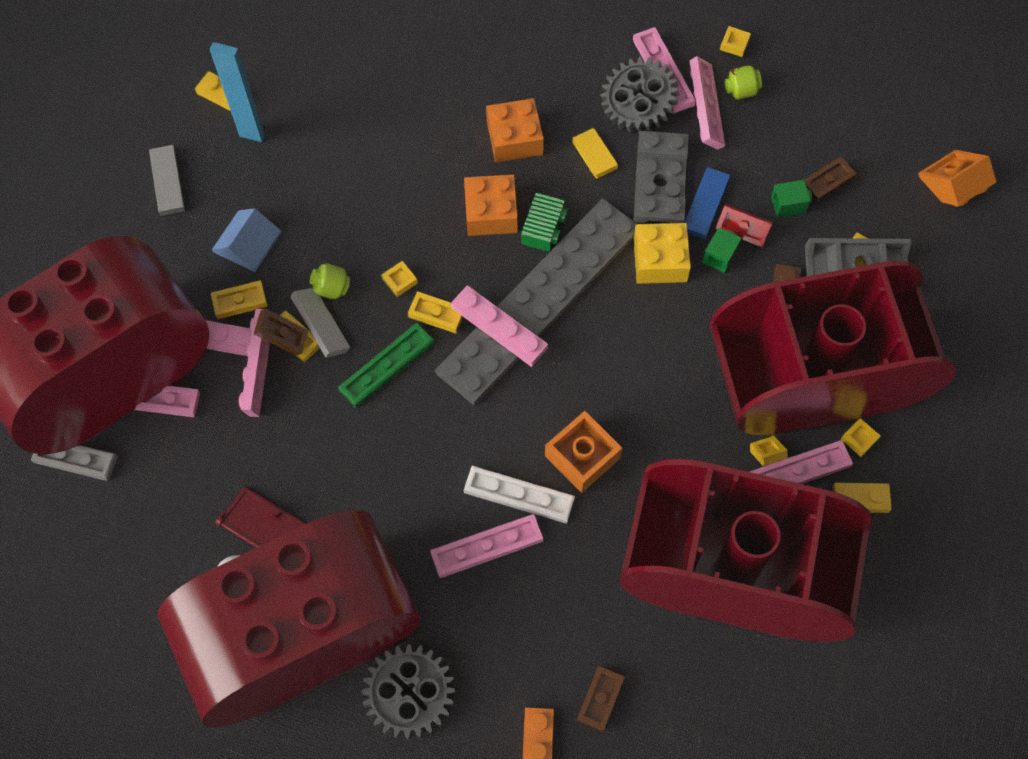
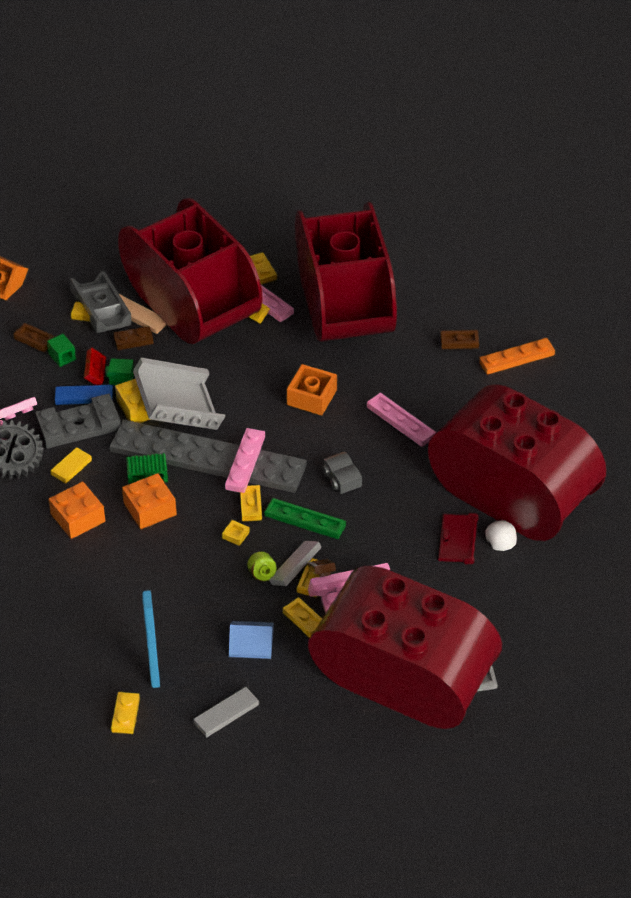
camera: 115 degrees left, 20 degrees down
(429, 431) = (342, 472): none -> dark grey brick
(519, 494) = (356, 419): white tile -> none
(634, 283) = (176, 393): none -> light grey panel

